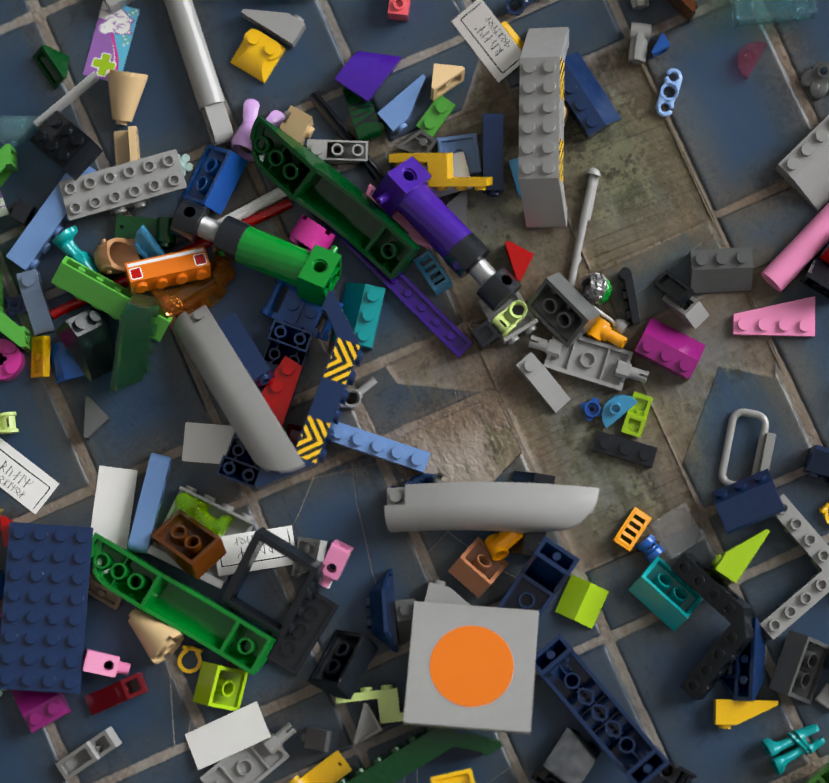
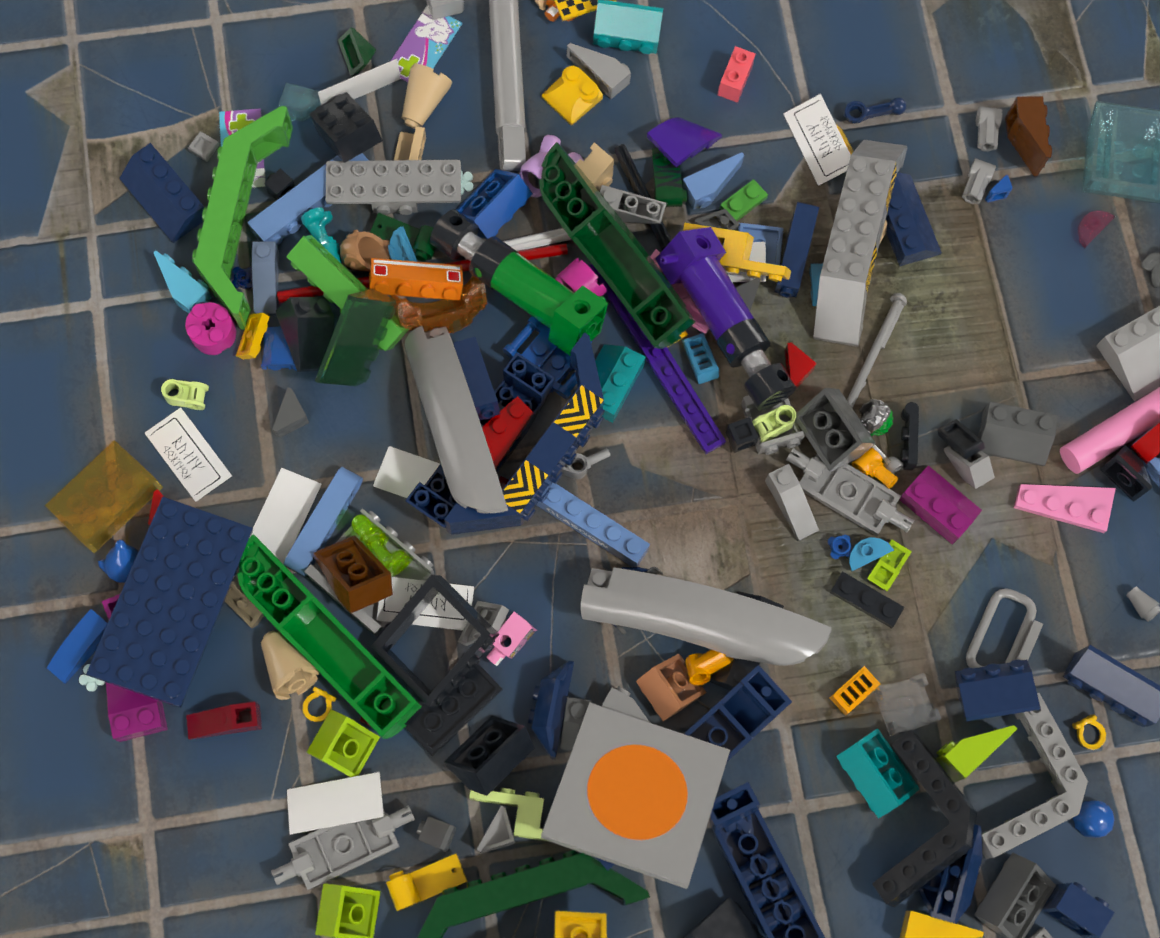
camera: 10 degrees right, 10 degrees down
(88, 753) = (171, 781): light grey slope -> none
(95, 661) = (210, 676): bright pink torso -> none
(445, 78) = (764, 165): tan slope -> none
(581, 601) = (779, 757): lime slope -> none
(651, 553) = (874, 721): blue wheel -> none
(662, 99) = (990, 244): light blue piece -> none

